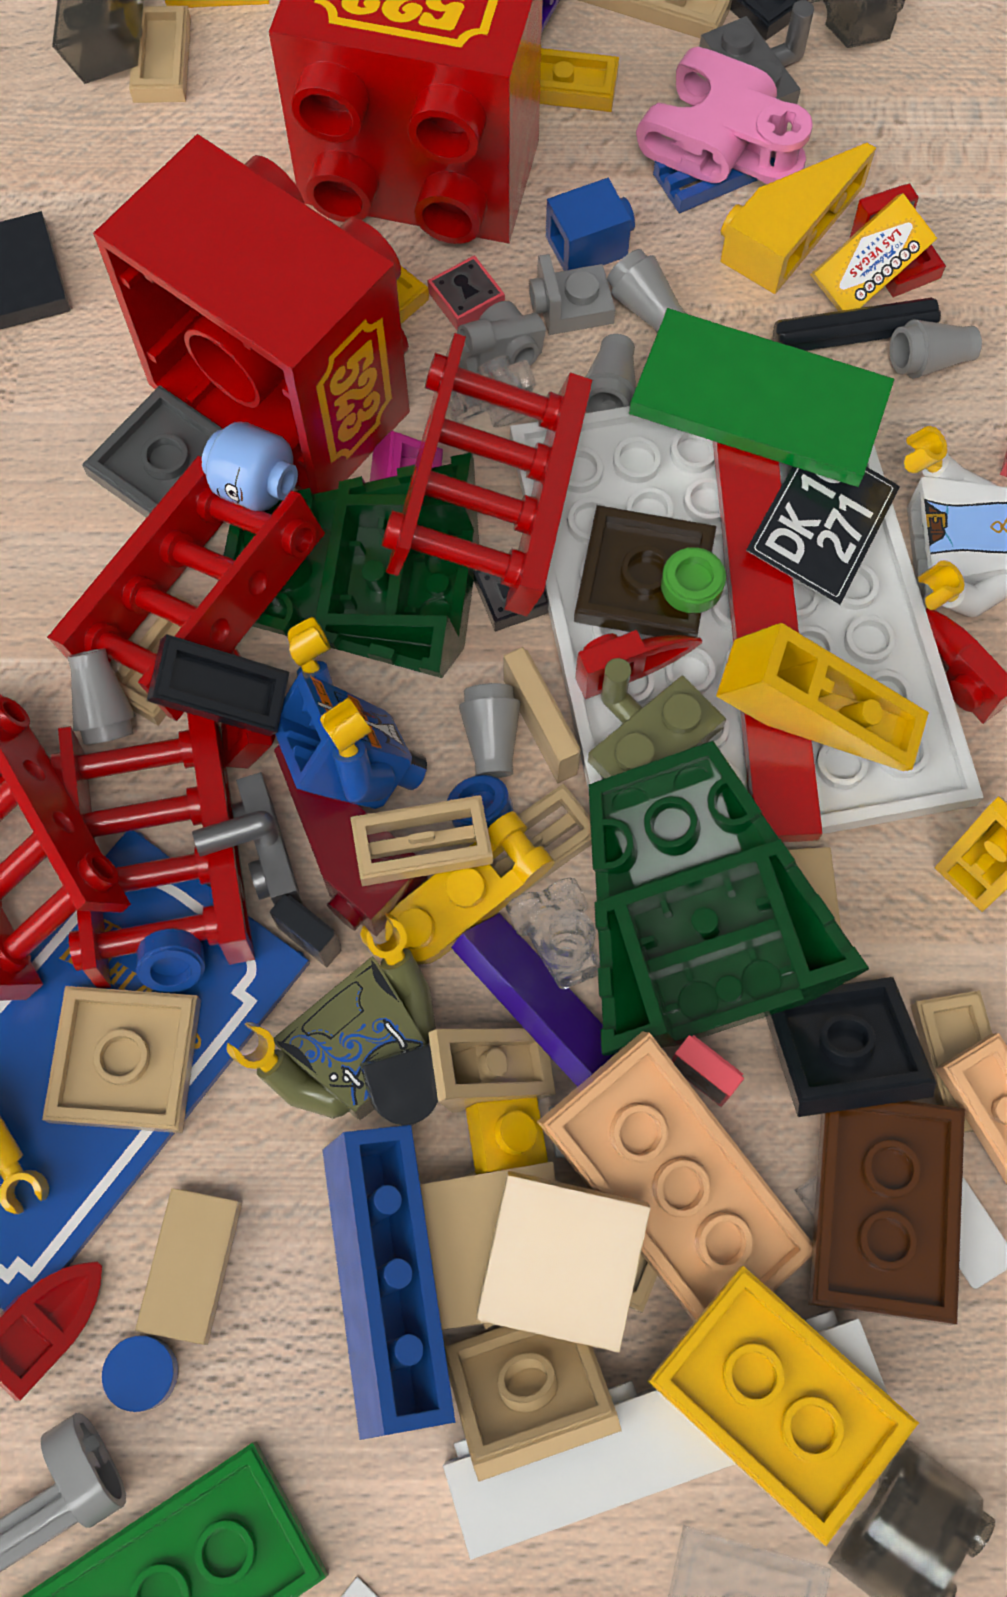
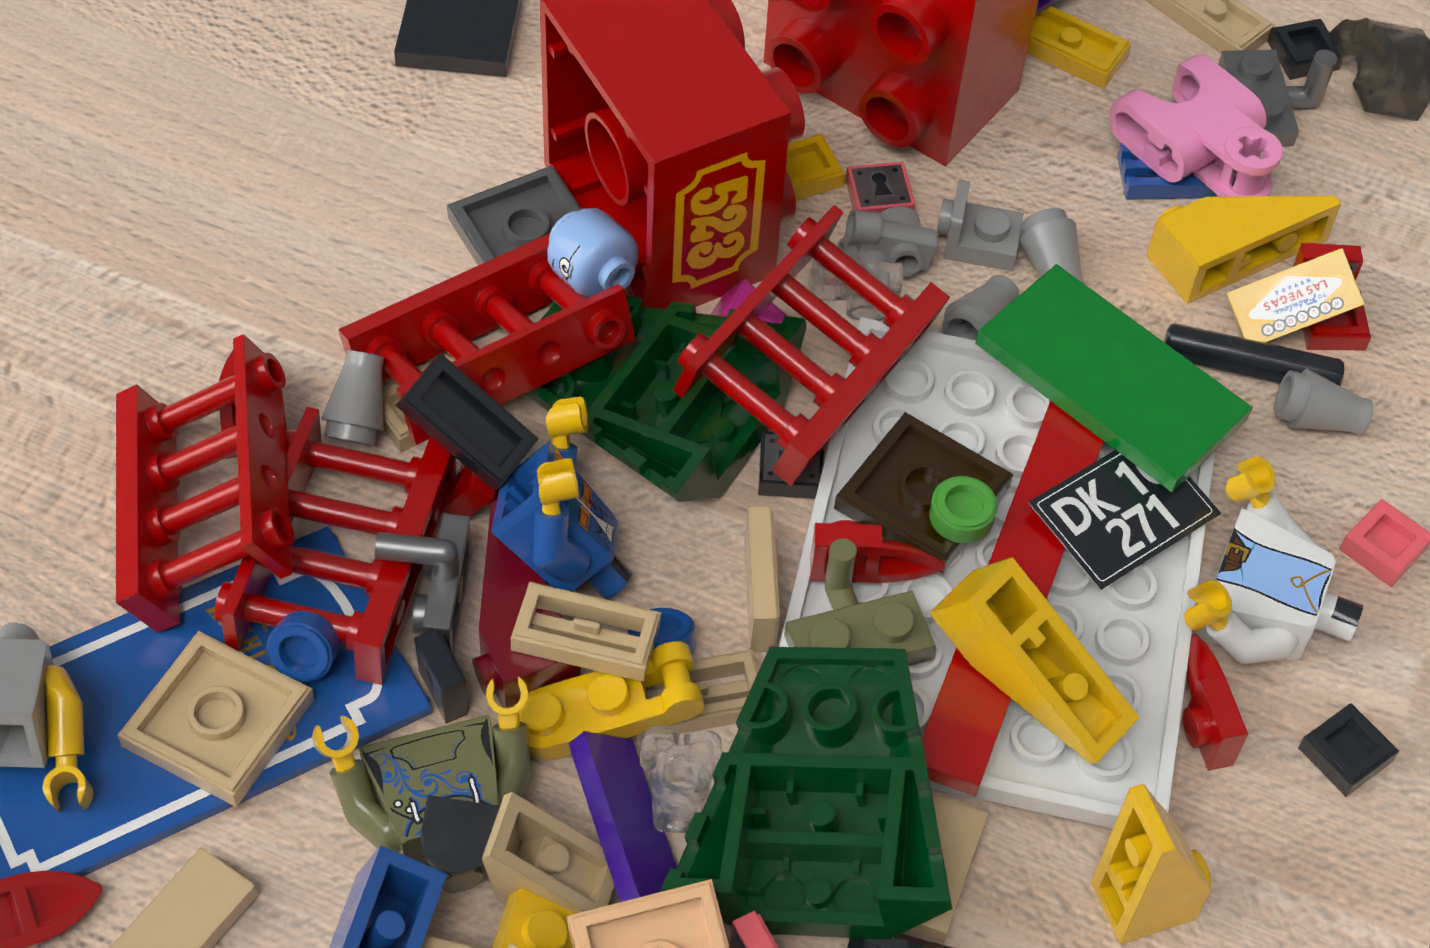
camera: 20 degrees right, 15 degrees down
(491, 727) = (708, 570): light grey cone -> none
(589, 225) = (1026, 173): blue brick -> none

